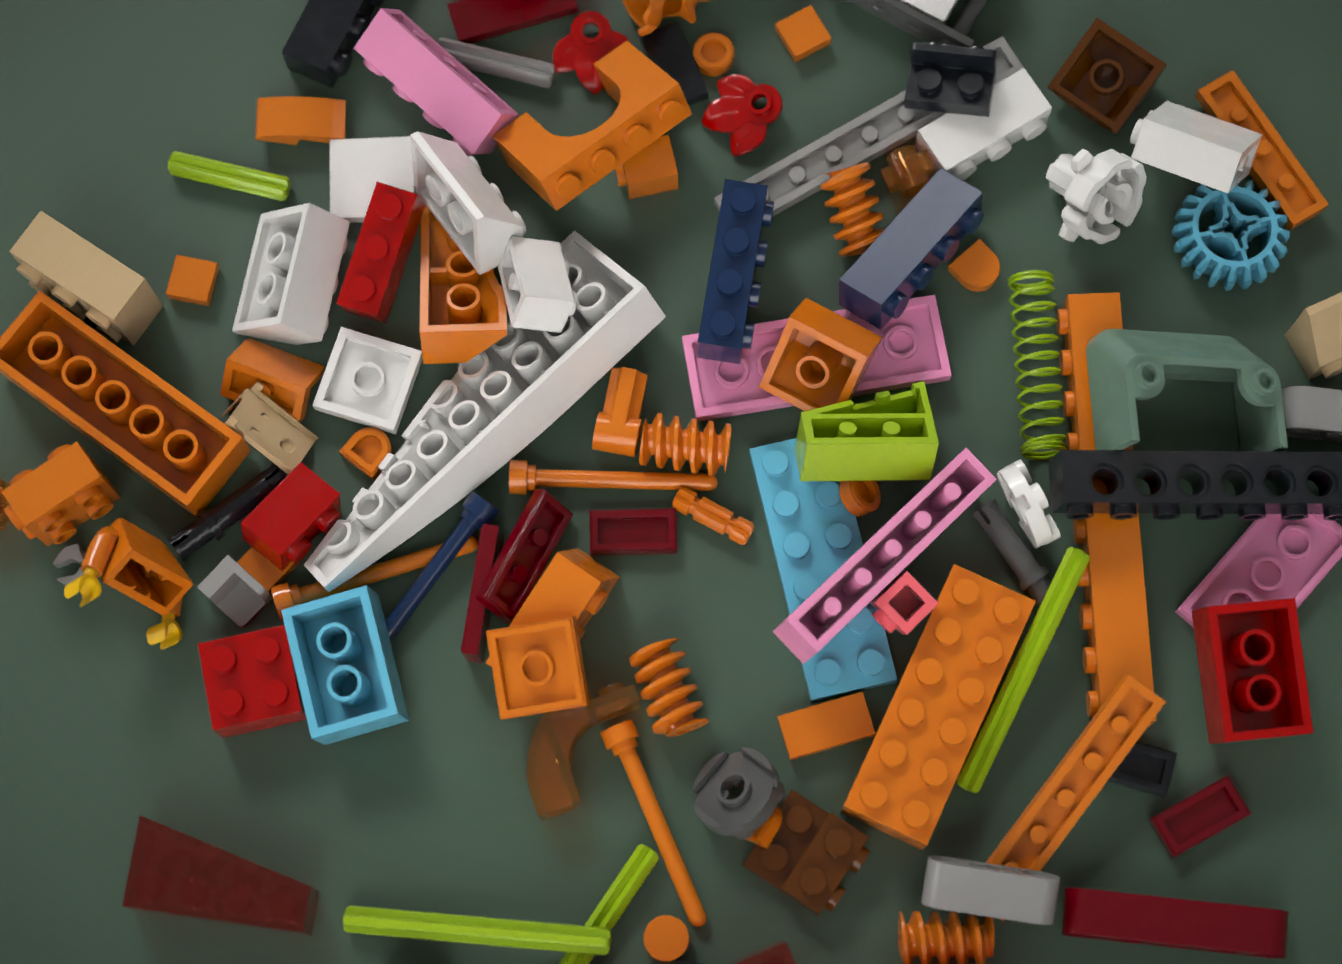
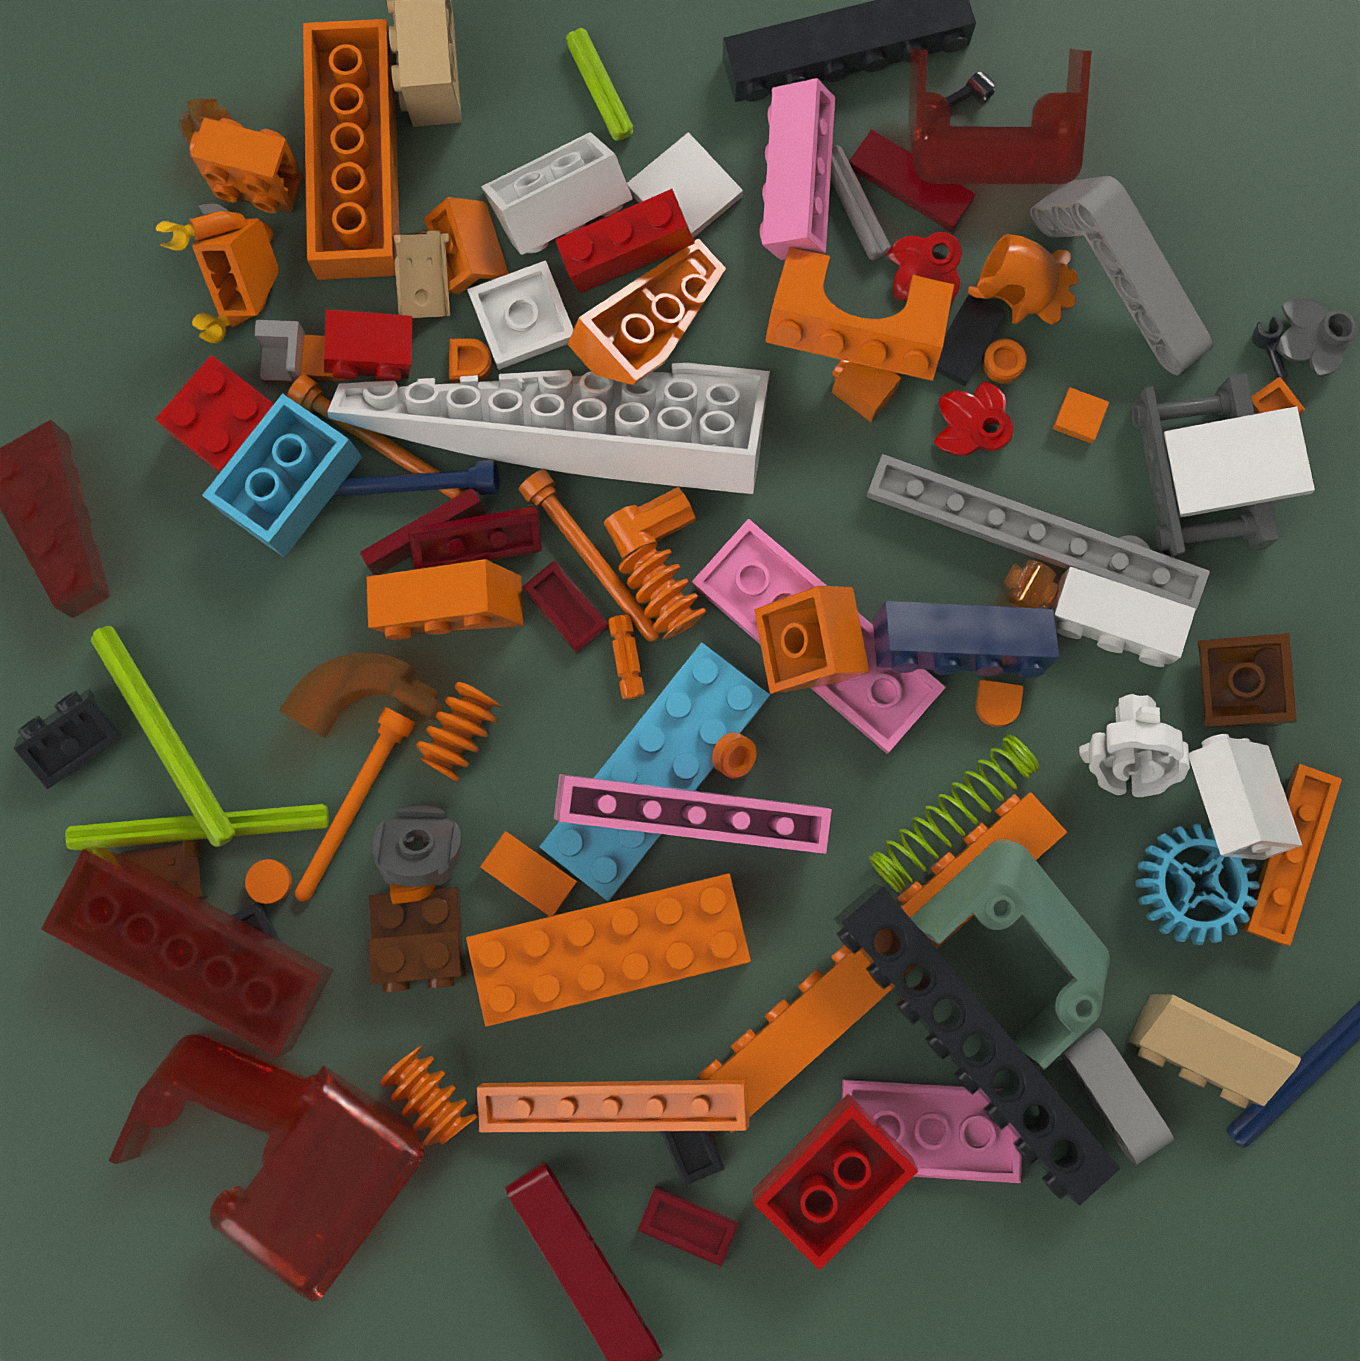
camera: 50 degrees right, 5 degrees up
(192, 280) = (496, 126): orange tile -> none
(226, 513) = (321, 293): black pin -> none
(299, 118) = (687, 98): orange slope -> none
(463, 200) = (718, 269): white slope -> none
(536, 284) = (691, 375): white brick -> none
(538, 667) = (389, 618): orange tile -> none
(732, 271) = (828, 514): dark blue brick -> none
(853, 208) = (962, 566): orange piece -> none
(869, 440) = (776, 728): lime wedge -> none
(902, 604) = (663, 858): coral brick -> none
(951, 79) = (1134, 558): black bracket -> none
(990, 890) = (489, 1104): light grey beam -> none
(1015, 551) = (781, 930): dark grey pin -> none
(1023, 670) = (692, 994): lime axle -> none
(1028, 504) = (827, 894): white plate -> none

